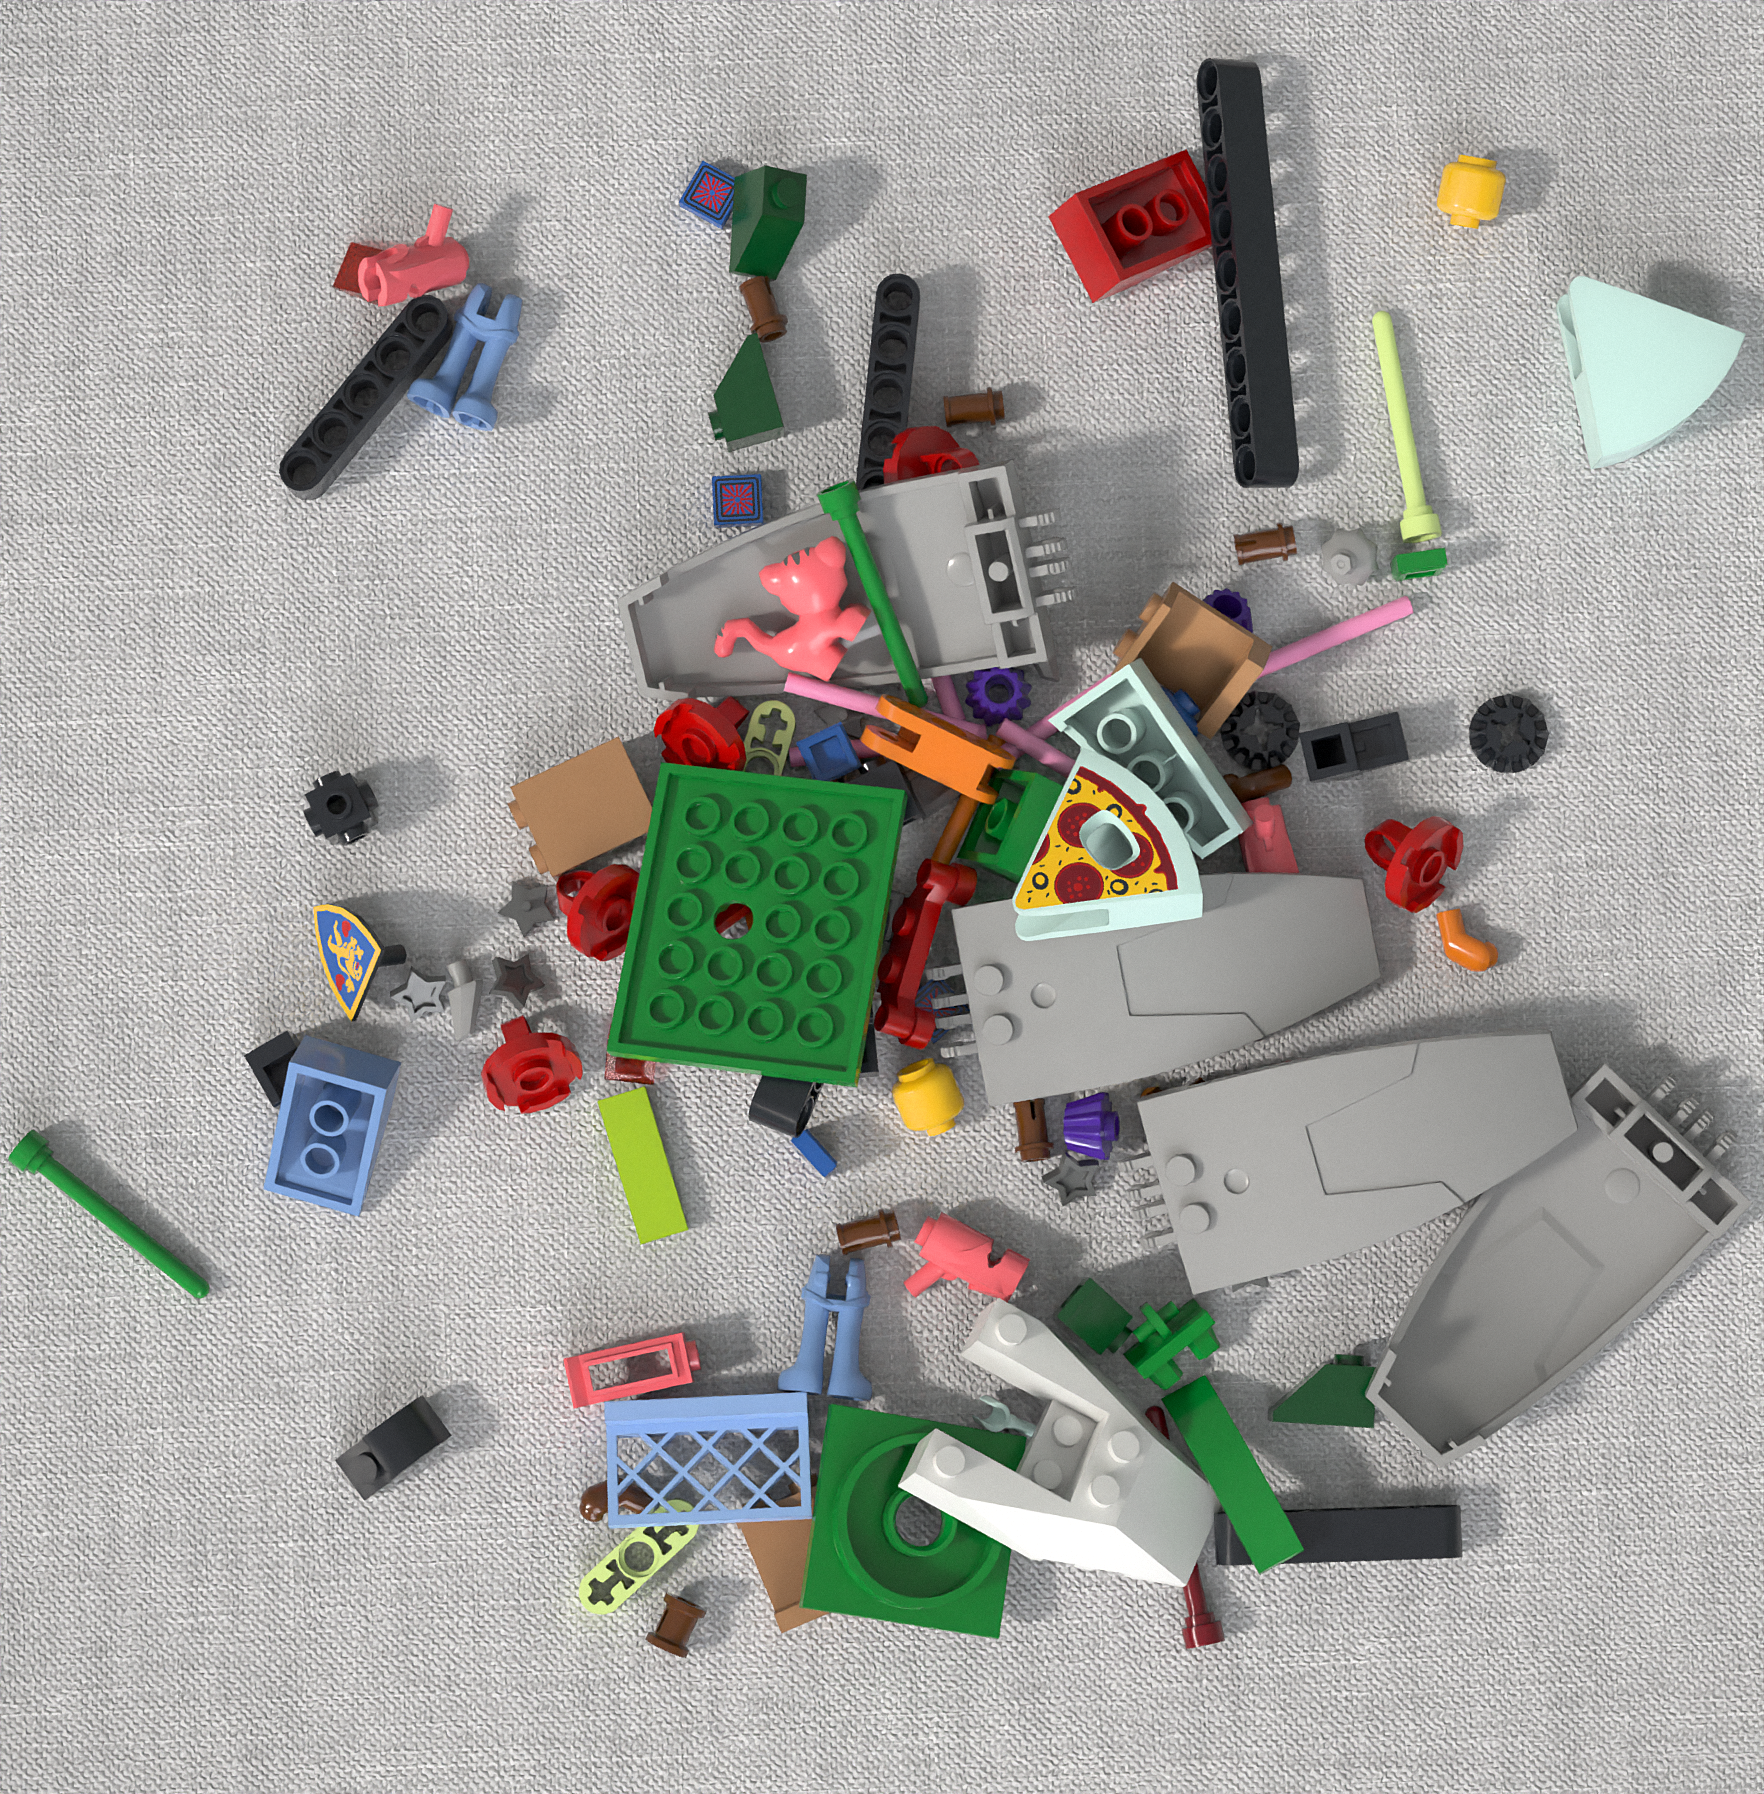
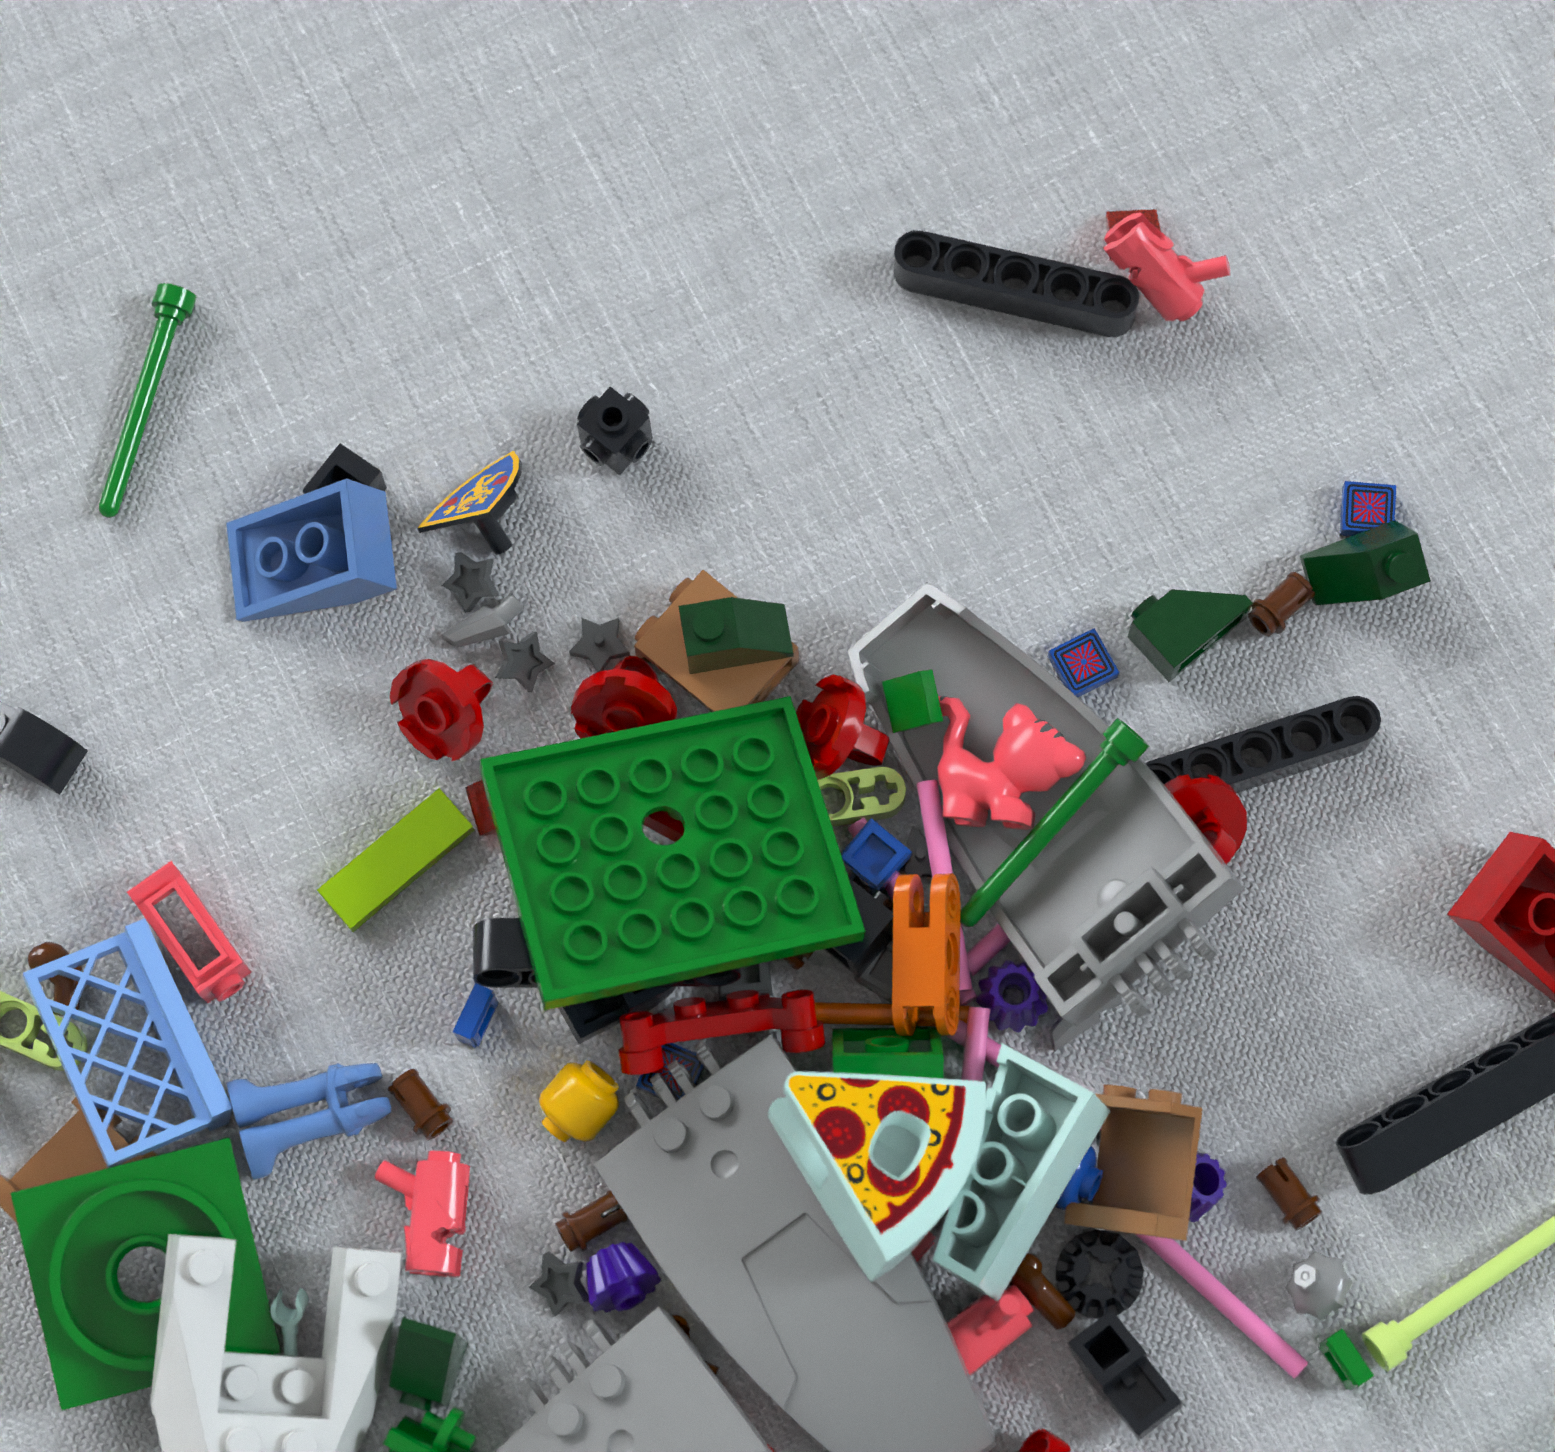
camera: 70 degrees right, 10 degrees down
(440, 392) = (1131, 347): medium blue piece -> none
(586, 785) = (734, 633): none -> dark green slope
(713, 660) = (912, 701): none -> green tile
(974, 408) = (1284, 846): reddish brown pin -> none

